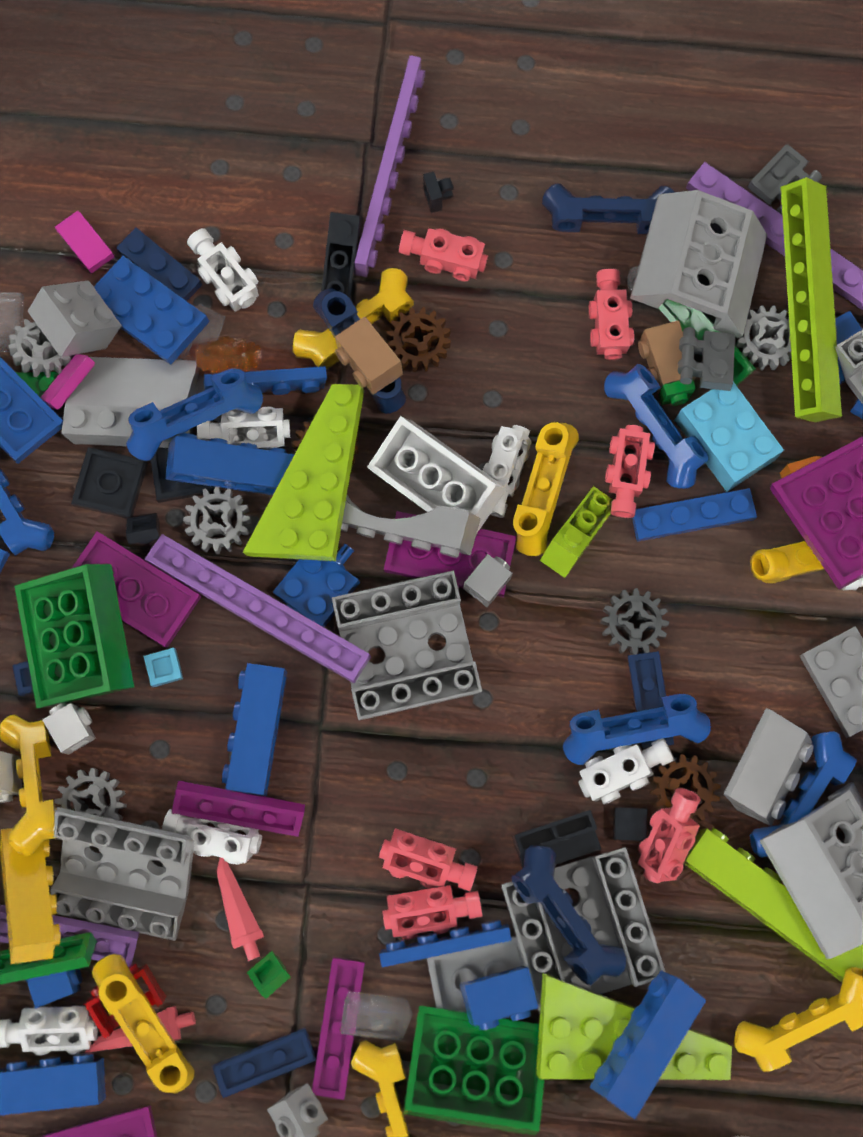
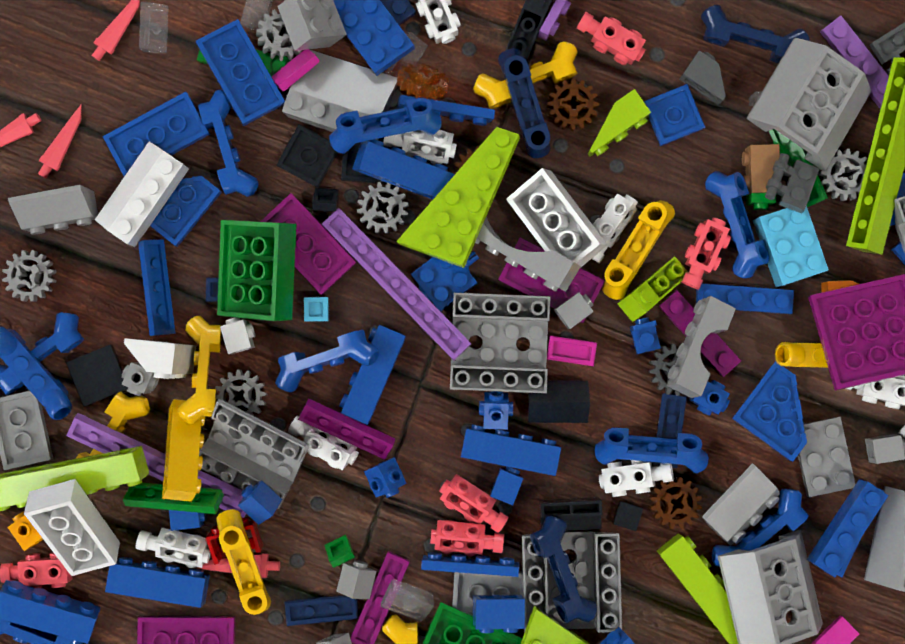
camera: 25 degrees right, 10 degrees up
(145, 935) = (259, 502): none -> blue brick
(154, 743) = (350, 345): none -> blue plate
(241, 921) = (328, 504): coral bar -> none
(300, 1007) = (356, 580): none -> light grey brick
(304, 859) = (385, 478): none -> blue brick
(368, 356) = (530, 114): medium nougat brick -> none
(424, 732) = (495, 410): none -> blue brick
(457, 780) = (511, 451): none -> blue brick
(464, 825) = (506, 485): none -> blue brick
(483, 337) = (626, 113): none -> lime slope
(499, 634) = (571, 351): none -> dark pink tile
(505, 702) = (561, 404): none -> black piece
(543, 322) = (674, 115): none -> blue tile
(567, 269) = (705, 77): none -> dark grey slope
(585, 591) = (645, 336): none -> blue bracket
(610, 318) = (726, 127): coral brick -> none
(652, 571) = (713, 347): none -> magenta plate
(653, 617) = (689, 373): none -> light grey arch
(670, 838) = (653, 536): coral brick -> none
(678, 648) = (719, 400): none -> blue brick
(774, 642) = (775, 413): none -> blue plate

